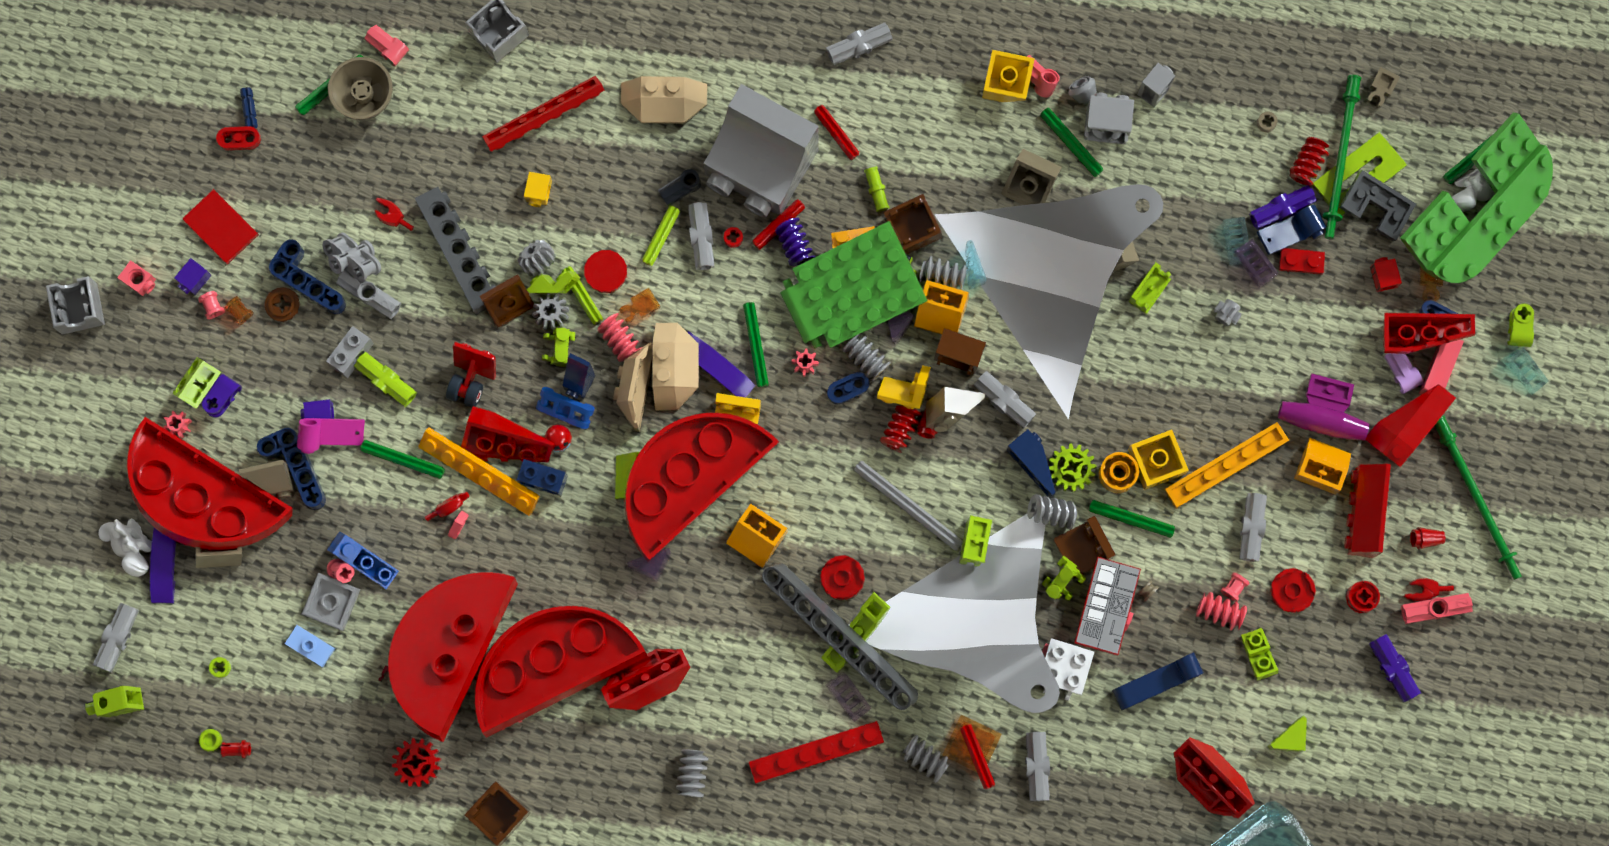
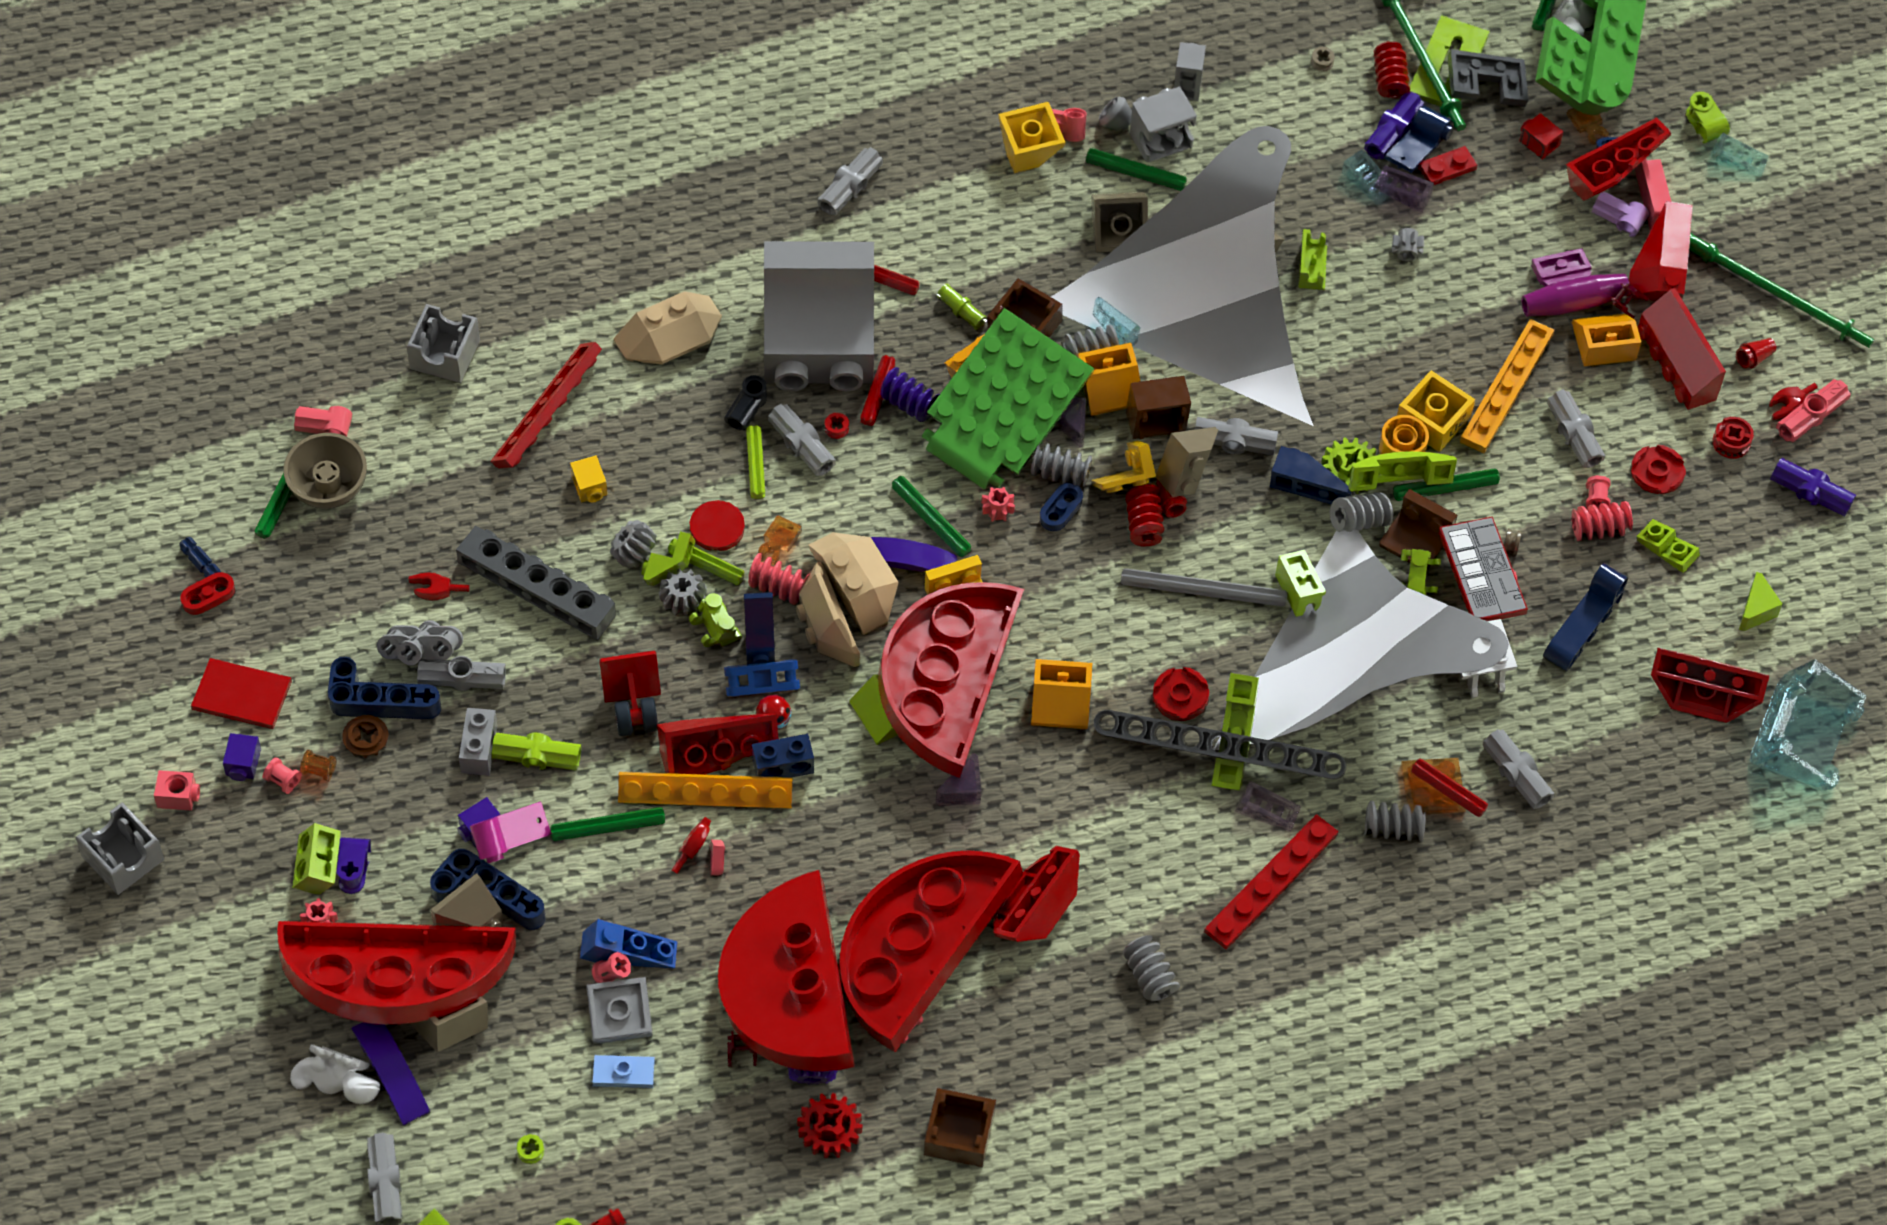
camera: 35 degrees left, 20 degrees down
(507, 301) = (628, 600): reddish brown plate -> none
(1106, 494) = (1402, 466): none -> lime slope
(1365, 442) = (1634, 292): none -> dark red piece

